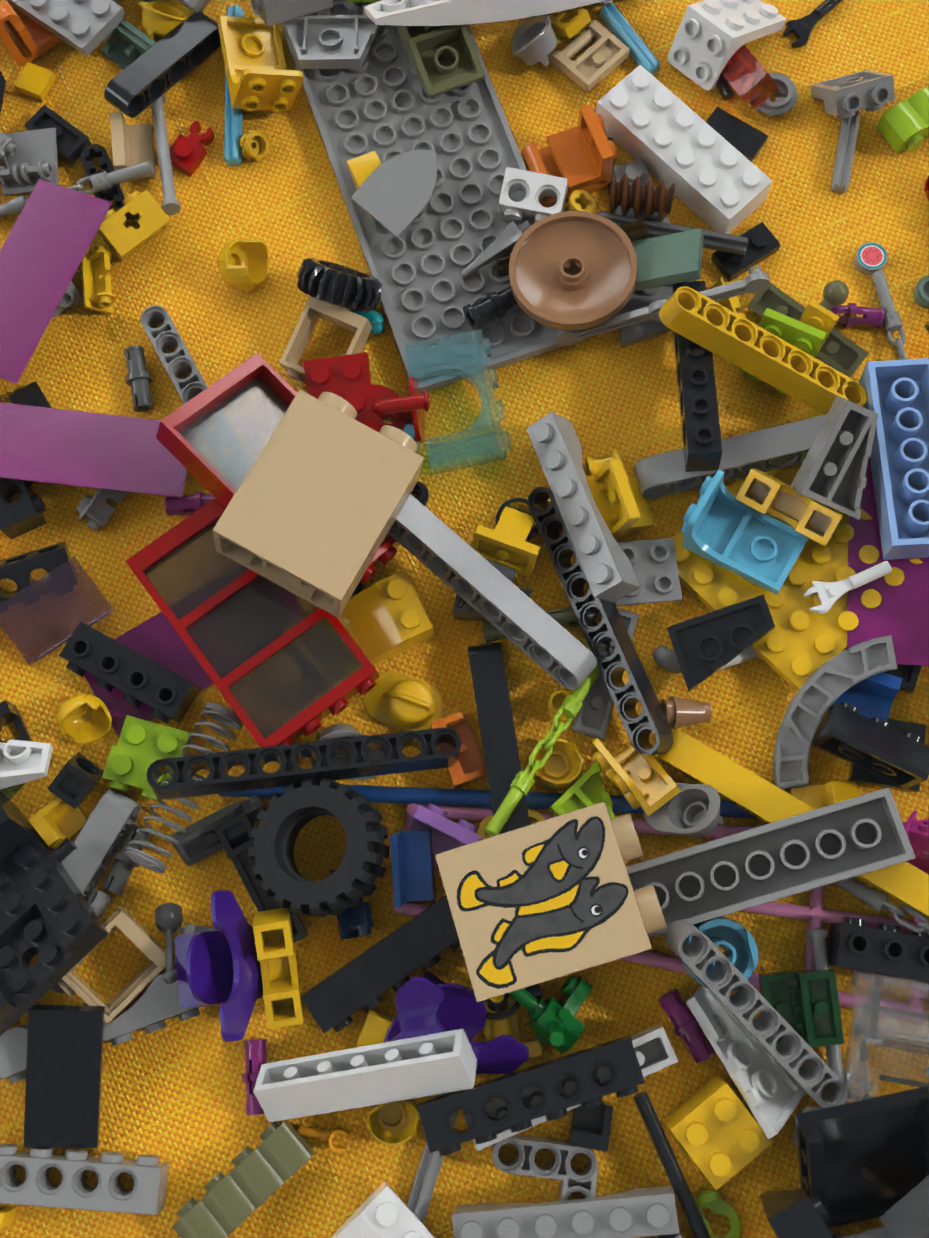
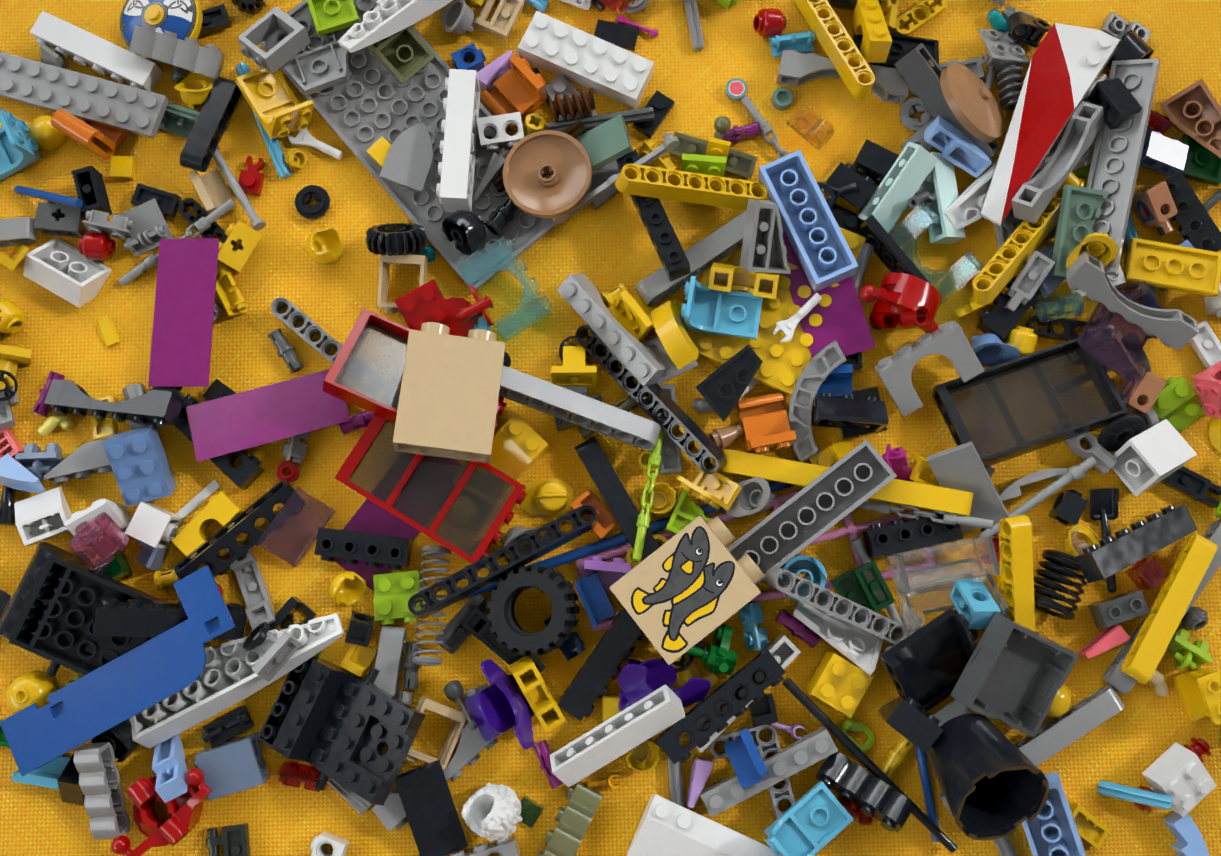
camera: 25 degrees left, 5 degrees up
(81, 541) = (295, 471): none -> red plate
(149, 1114) = (493, 812): none -> white hair
(200, 1132) = (530, 811): none -> clear green slope
(244, 198) = (304, 197): none -> black gear
(278, 126) = (305, 138): none -> white piece
(434, 305) = (466, 230): none -> black cylinder
(463, 1182) = (699, 774): none -> lavender slope
(472, 189) = (459, 140): none -> white brick
(526, 90) = (469, 52): none -> blue brick
(538, 1190) = (746, 760): none -> blue panel
(544, 124) = (494, 71): none -> lavender slope
(618, 1013) = (754, 637): none -> medium azure hinge
(620, 1169) = (790, 729): none -> lavender hand
(663, 543) = (673, 334): none -> yellow arch
(746, 715) = (765, 423): none -> orange piece
(785, 149) = (622, 20): none -> dark pink hinge

